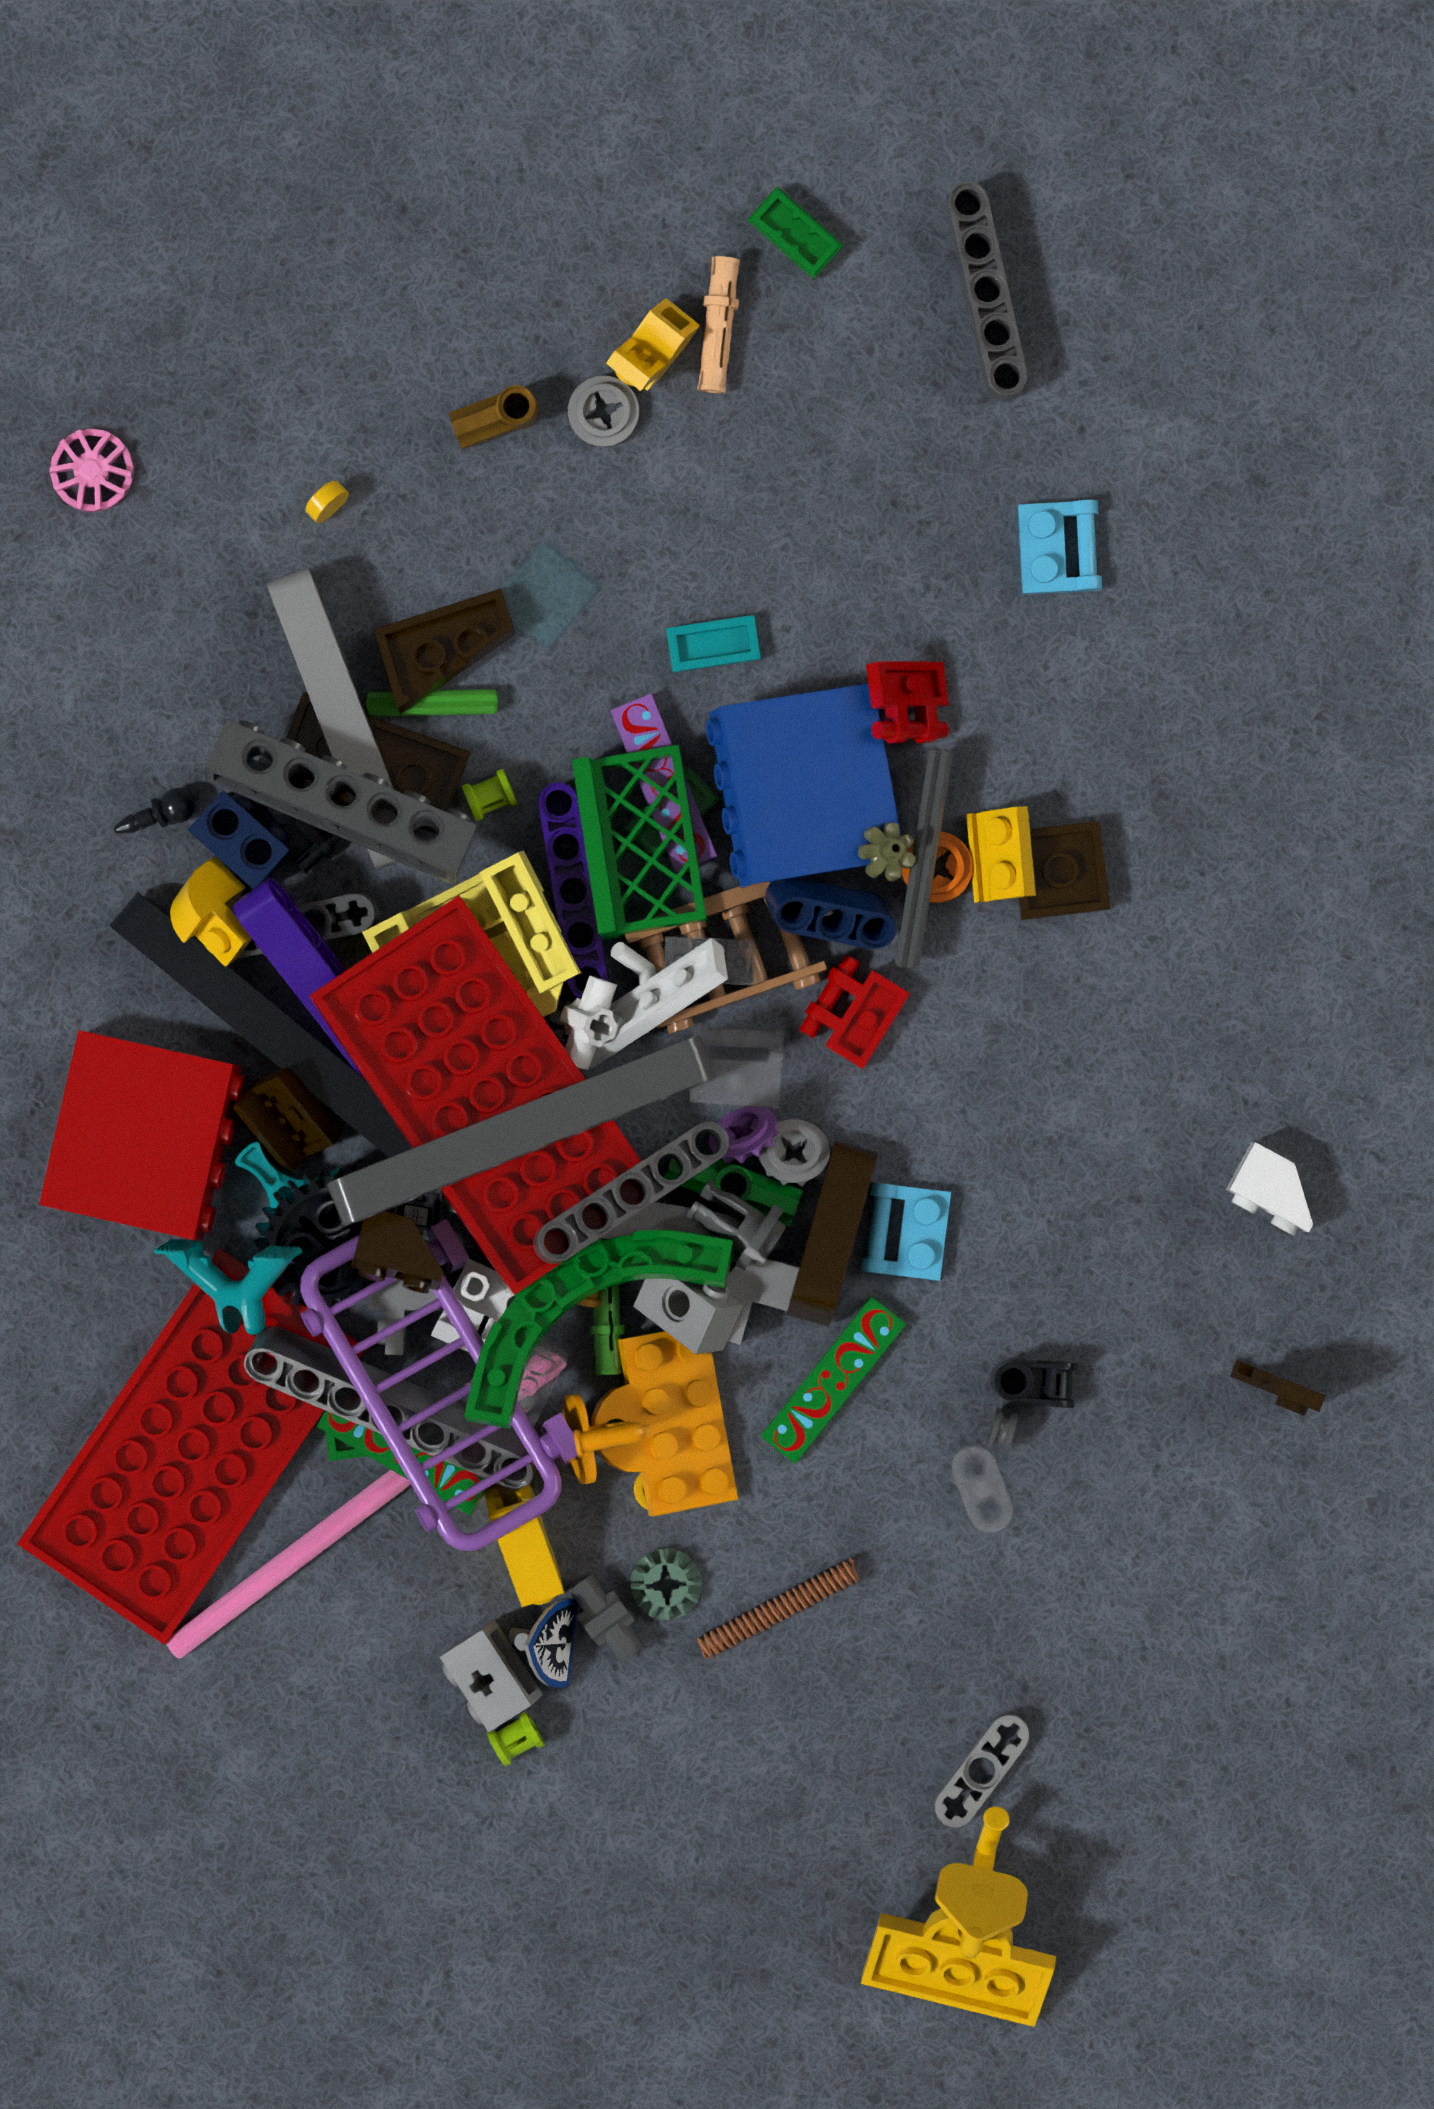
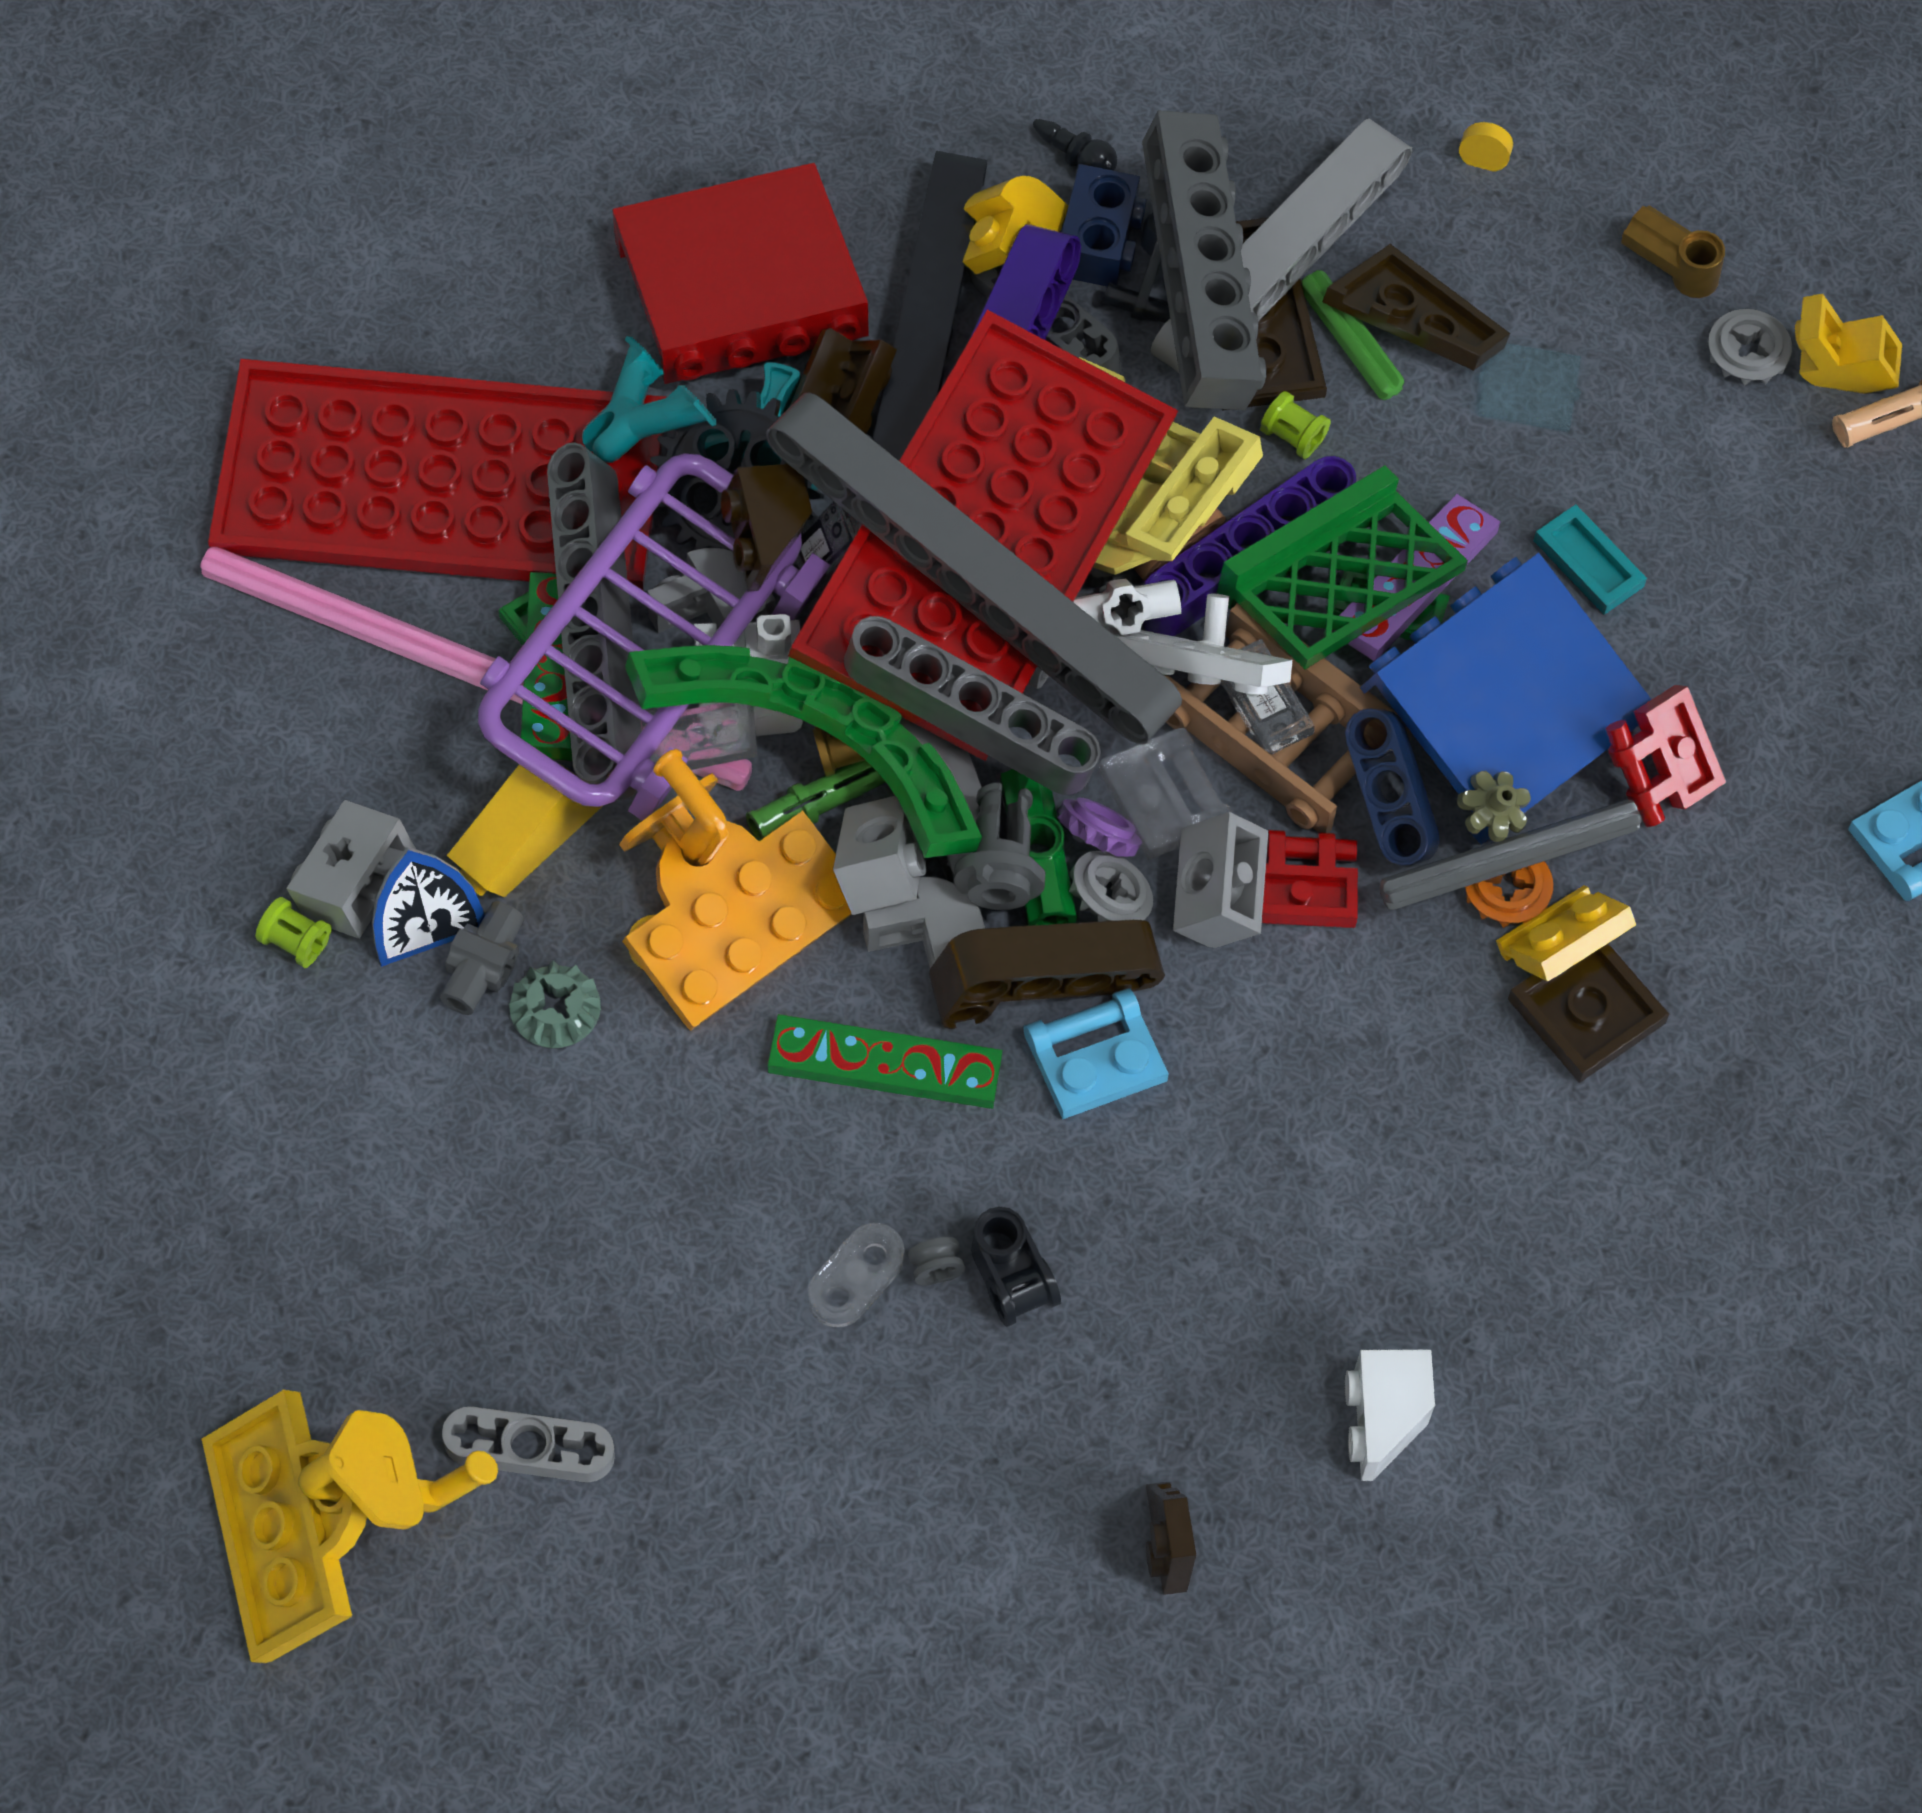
camera: 50 degrees right, 25 degrees down
(788, 1608) = (566, 1109): nougat piece -> none
(833, 1075) = (1220, 880): none -> light grey brick

